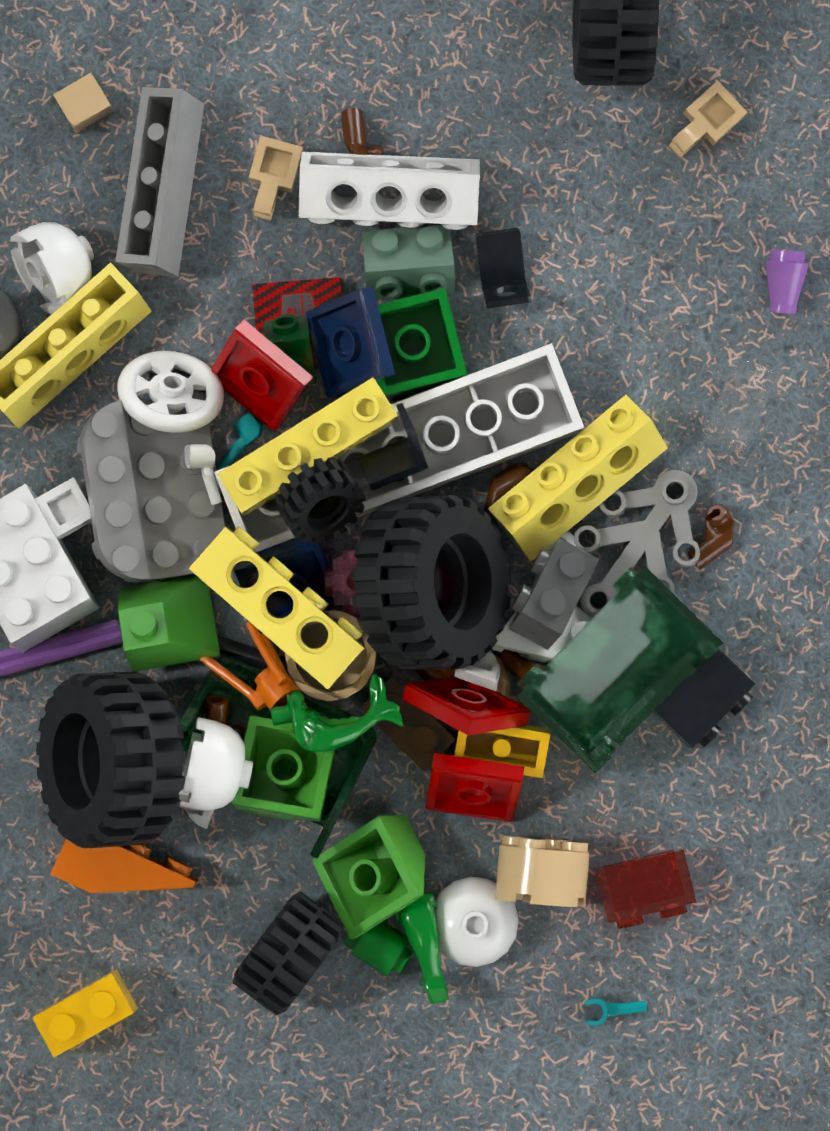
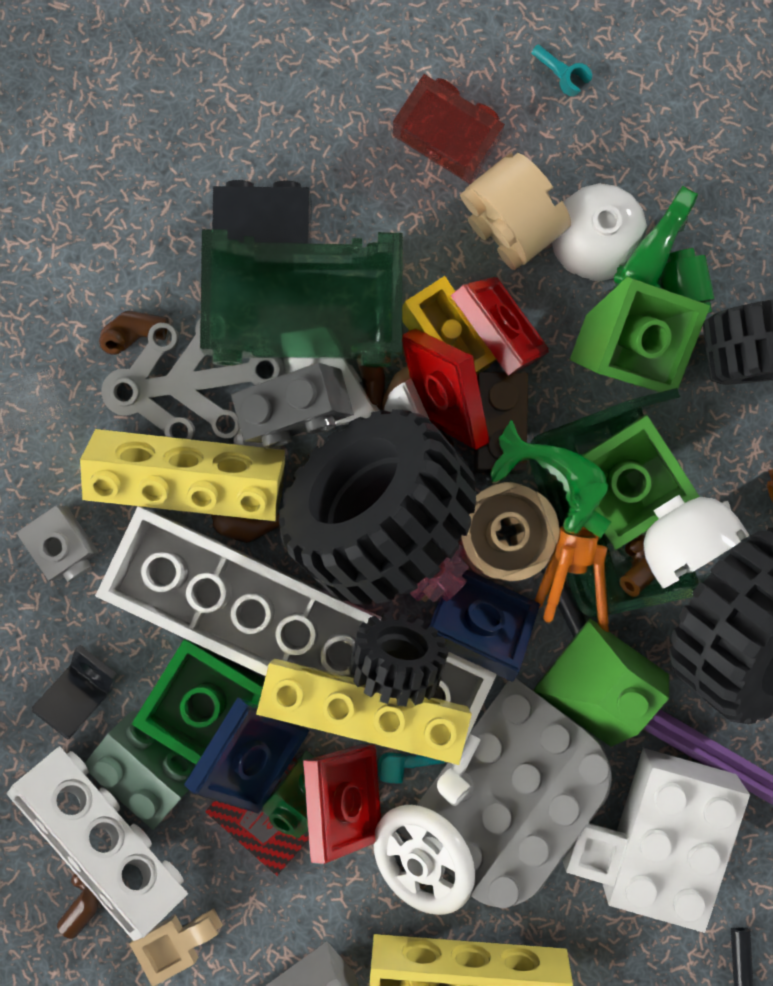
camera: 130 degrees left, 0 degrees up
(321, 662) = (536, 687): light yellow brick -> none
(396, 459) = (306, 629): black bracket -> none
(612, 349) = (58, 544): none -> light grey brick

